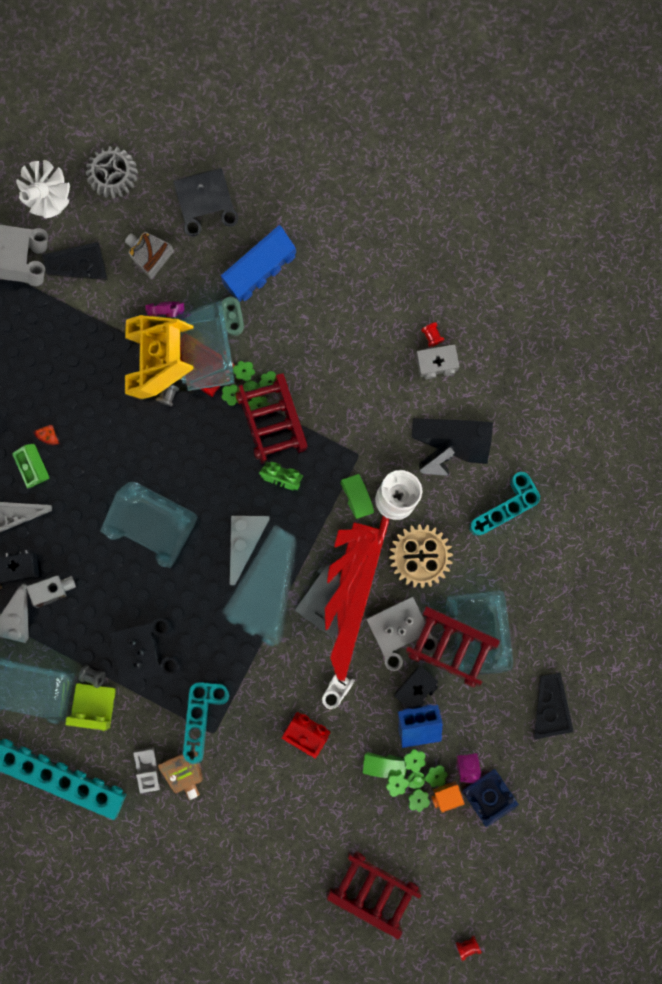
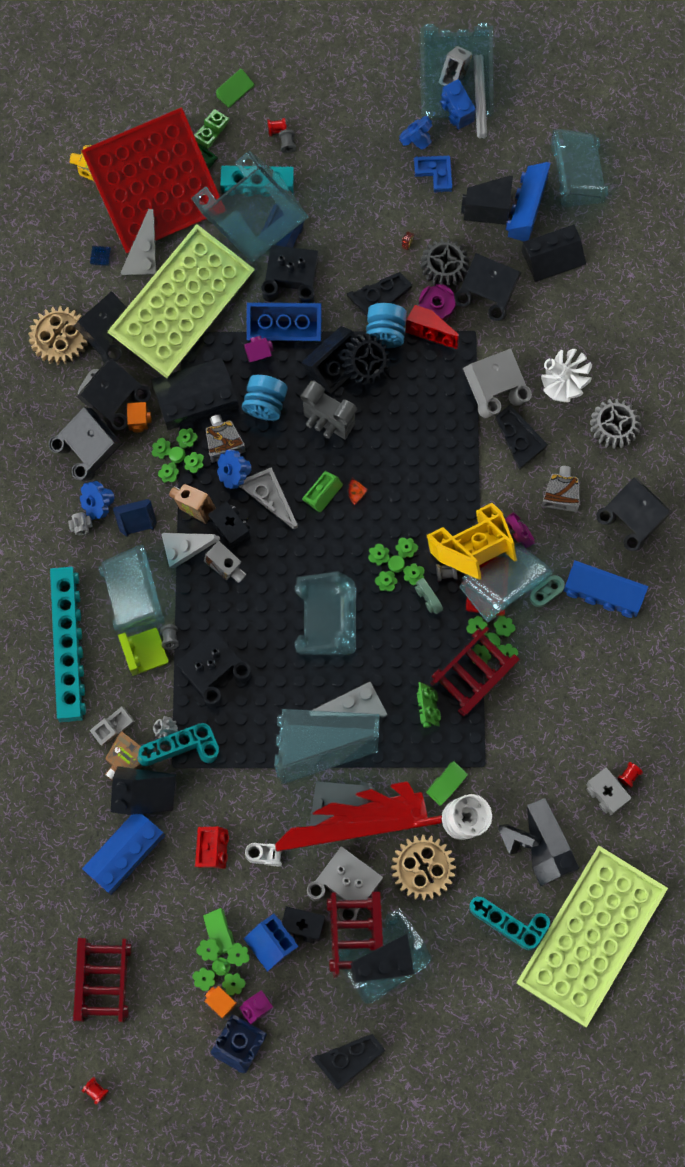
camera: 65 degrees right, 10 degrees down
(135, 435) = (396, 564): none -> bright green plant
(175, 723) = (164, 727): none -> light grey gear
(190, 422) = (432, 604): none -> sand green plate
(223, 775) = (142, 791): none -> black slope
(268, 818) = (123, 852): none -> blue slope
(493, 633) = (386, 962): none -> black wing
(552, 443) = (592, 936): none -> yellowish green plate

